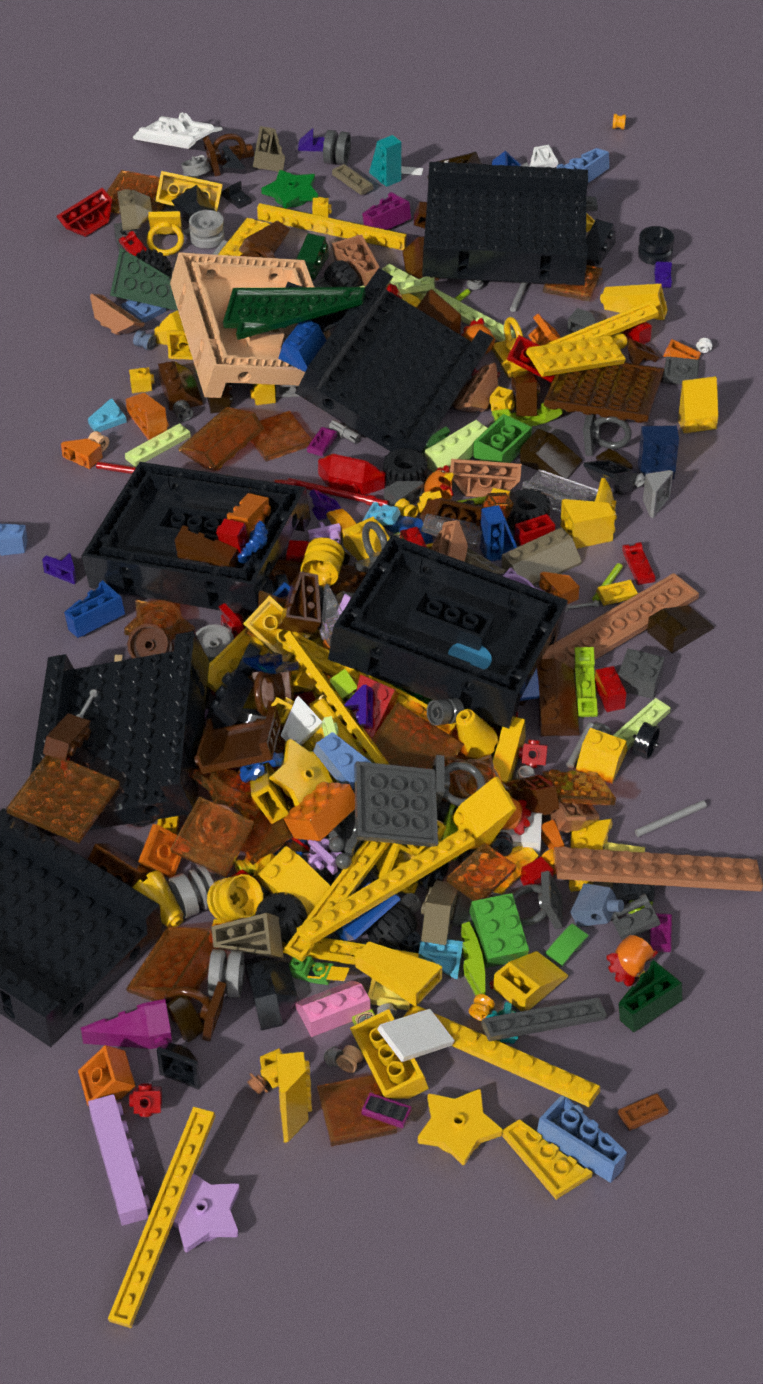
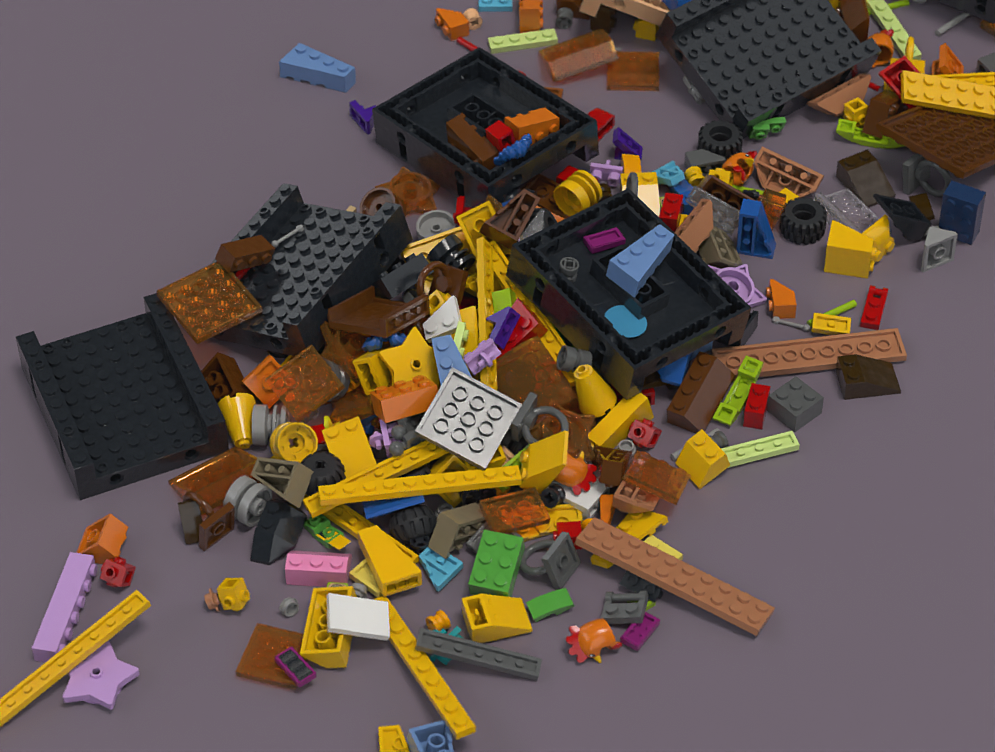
camera: 30 degrees right, 0 degrees up
(94, 611) = (361, 163): blue wedge -> none
(141, 1028) = (153, 513): magenta wedge -> none
(178, 1064) = (161, 554): black slope -> none
(270, 663) = (450, 259): clear blue slope -> none
(293, 1092) = (220, 616): yellow slope -> none
(322, 441) = (667, 90): magenta plate -> none
(341, 493) = (669, 156): red bar -> none
(349, 1058) = (298, 614): light nougat wheel -> none
(351, 474) = (668, 130): red wedge -> none
(369, 740) = (481, 356): none -> lavender hips
(393, 625) = (569, 267): none -> dark grey wheel
(399, 591) = (604, 240): none -> magenta tile
(455, 446) = (785, 139): yellowish green wedge -> none
(455, 597) = (639, 260): none -> medium blue wedge
(458, 1125) = (346, 706): yellow plate -> none
(473, 965) = (458, 587): lime slope -> none
(502, 440) = (825, 148): bright green brick -> none
(533, 529) = (794, 242): red brick -> none
(548, 553) = (789, 266): dark tan slope -> none
(595, 905) = (595, 582): sand blue torso -> none
(646, 740) = (751, 463): black wheel -> none
(650, 997) = (583, 678): dark green wedge -> none
(670, 818) = (738, 540): light grey bar -> none

